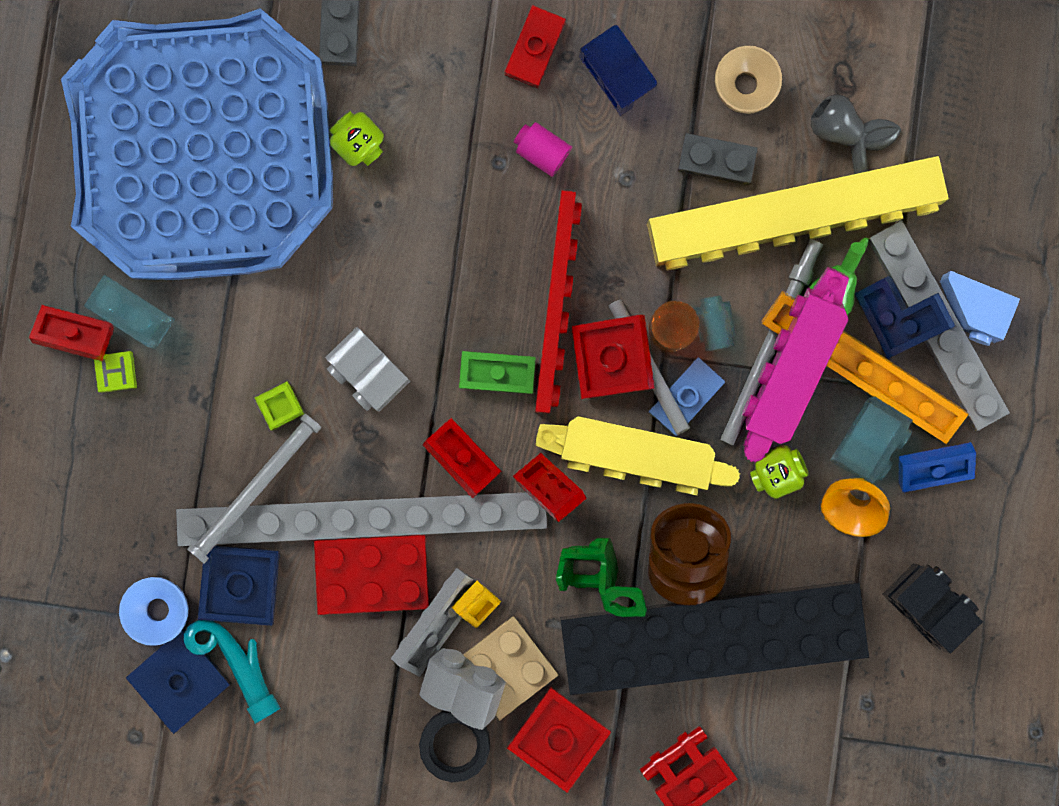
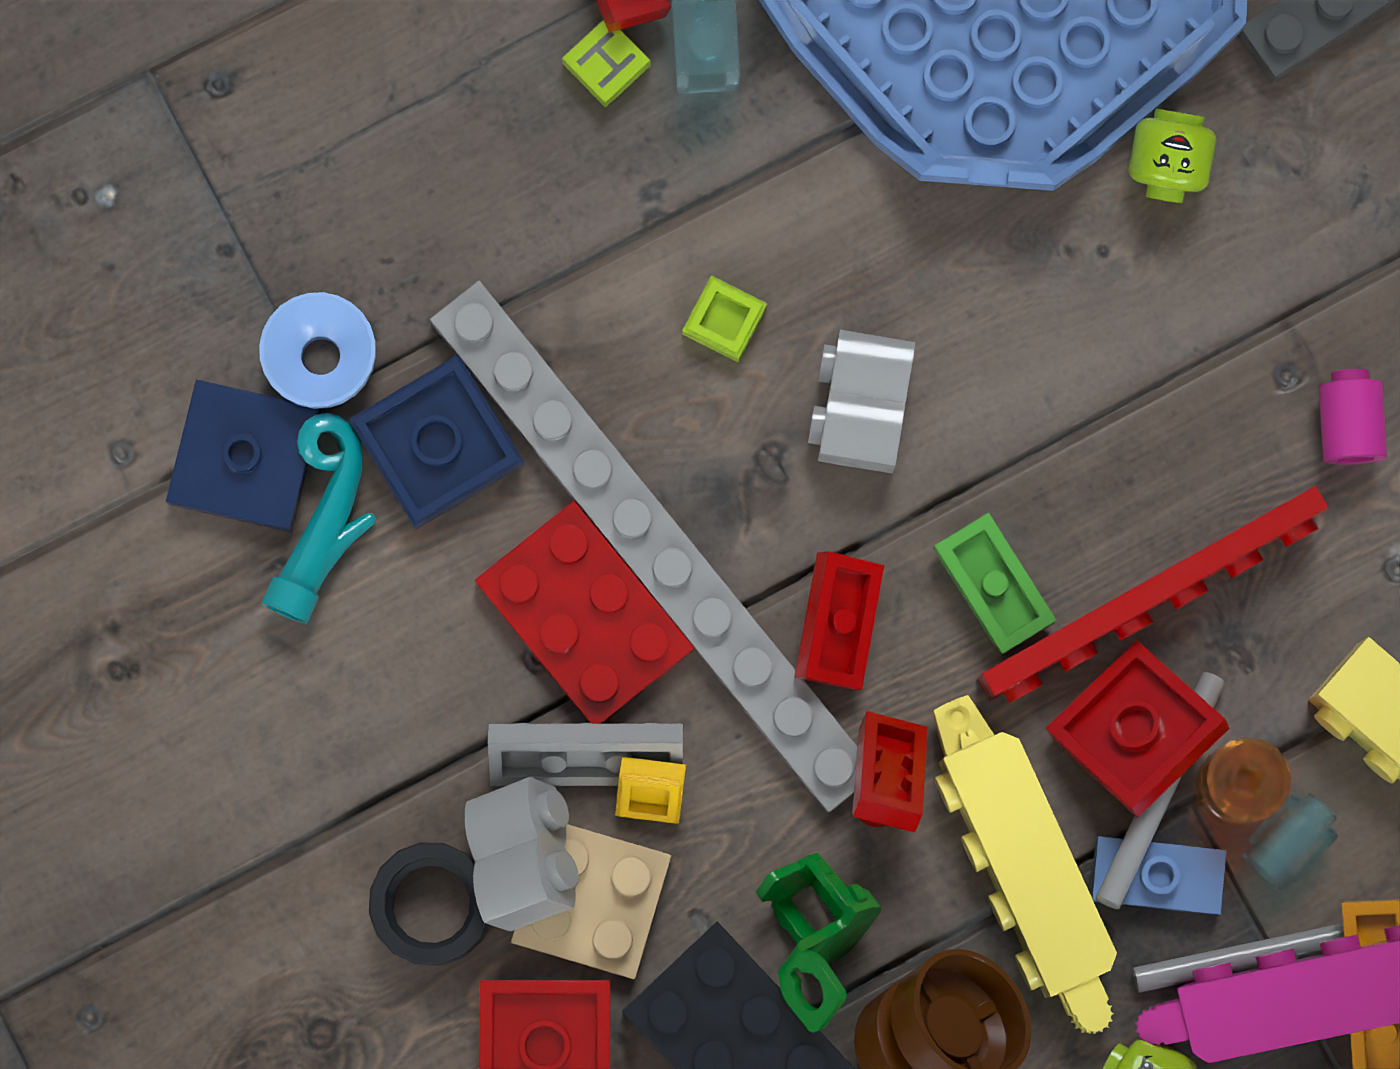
camera: 50 degrees right, 5 degrees down
(254, 488) = (587, 365): light grey bar -> none

